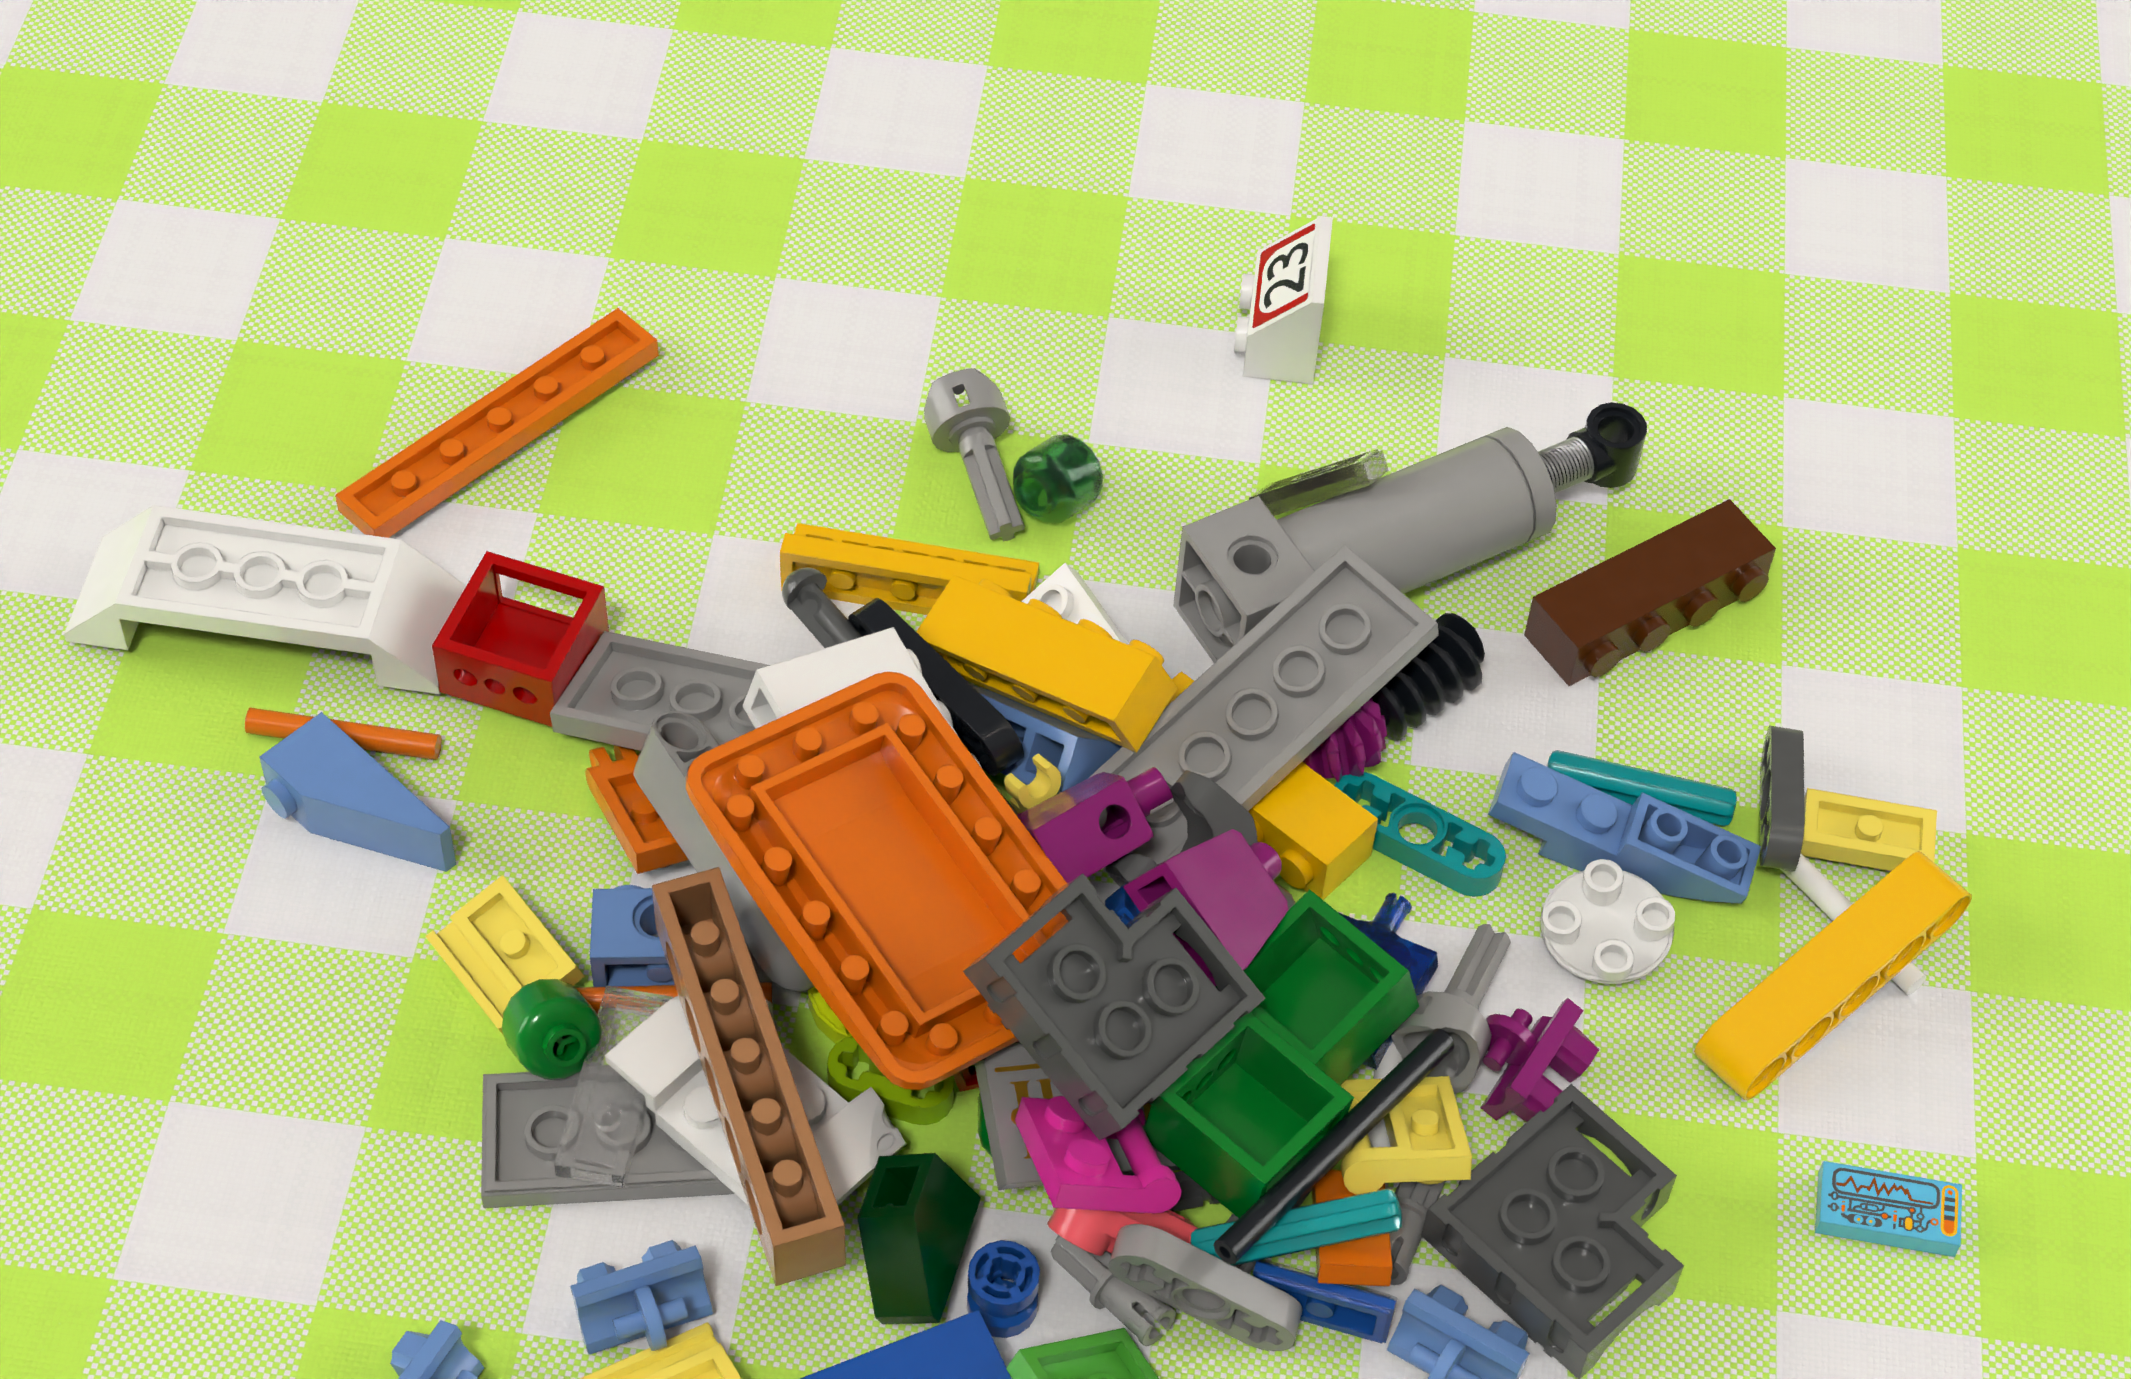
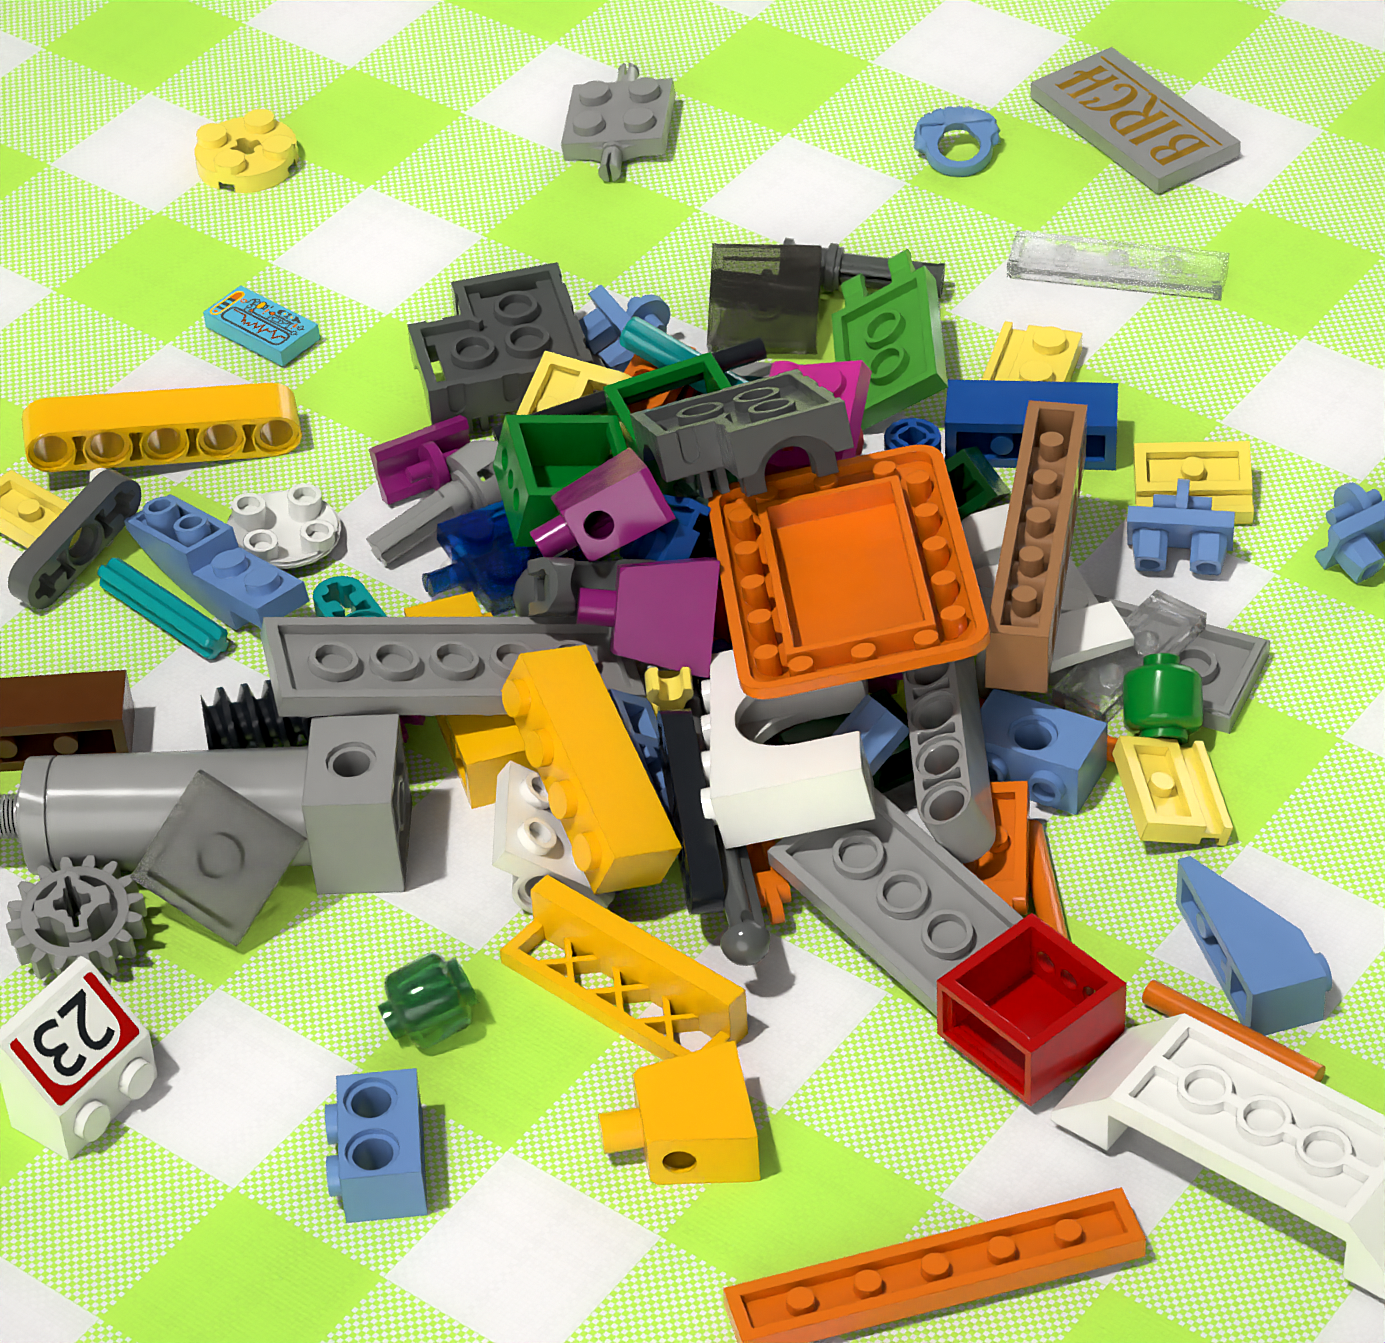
camera: 145 degrees left, 10 degrees down
(578, 807) = (1043, 882): none -> orange bar
(767, 463) = (689, 1120): none -> yellow torso
(972, 433) = (476, 1065): light grey piece -> none
(1008, 347) = (378, 1146): none -> medium blue brick
(1407, 425) = (45, 917): none -> light grey gear

